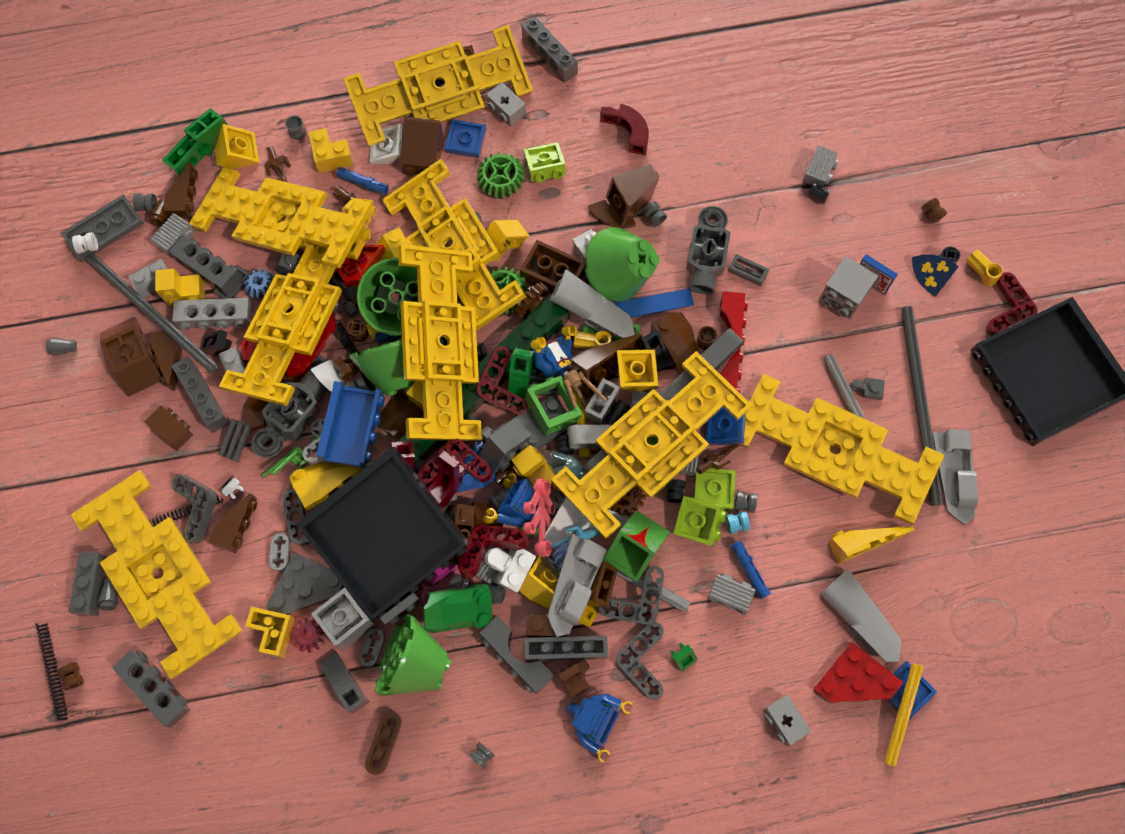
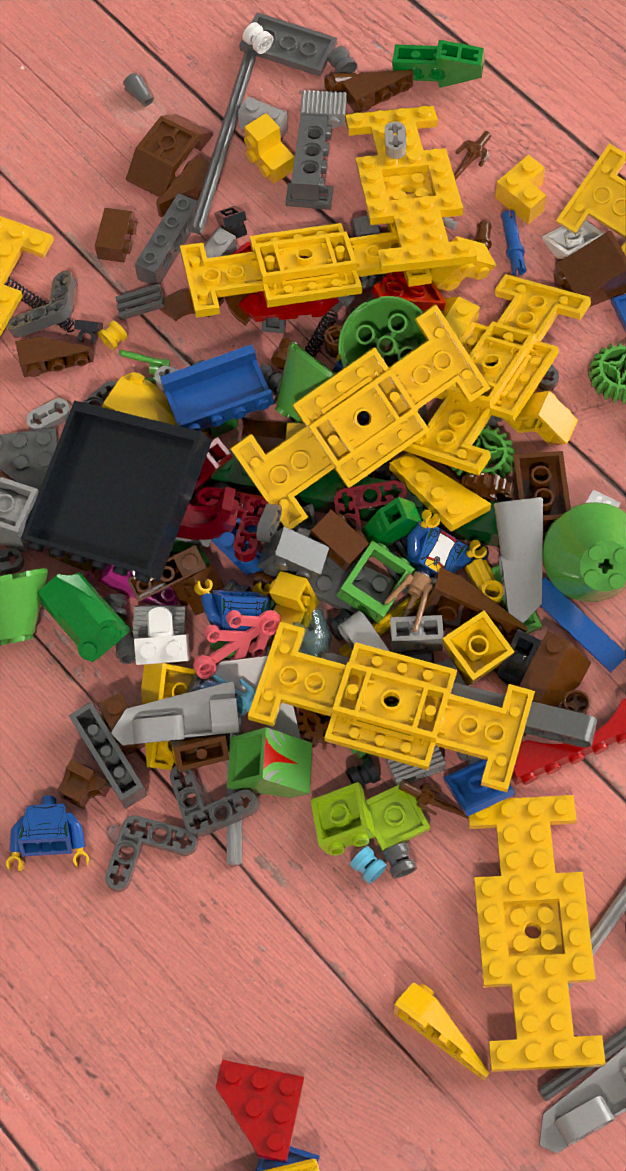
camera: 60 degrees right, 5 degrees down
(185, 309) = (273, 201): light grey brick -> none
(228, 200) = (395, 140): none -> light grey beam
(236, 148) = (463, 103): yellow slope -> none
(248, 473) = (112, 335): none -> yellow wheel
(253, 283) = (324, 214): medium blue gear -> none
(289, 420) = (194, 336): dark grey brick -> none
(295, 127) = (528, 141): dark grey wheel -> none
(327, 374) = (264, 341): white sticker -> none
(394, 615) = (52, 561): dark grey plate -> none
(475, 445) = (269, 523): none -> dark grey beam
(487, 540) = (174, 594): dark red beam -> none
(509, 408) = (343, 541): none -> reddish brown brick
(516, 329) = (439, 492): none -> yellow wing
(534, 674) = (82, 679): dark grey arch -> none
(684, 657) = (172, 890): green tile -> none
(731, 594) = (277, 903): light grey brick -> none
(750, 569) = (321, 910): blue pin -> none
(797, 726) = (164, 1062): light grey brick -> none
(863, 616) = (344, 1068): light grey panel -> none

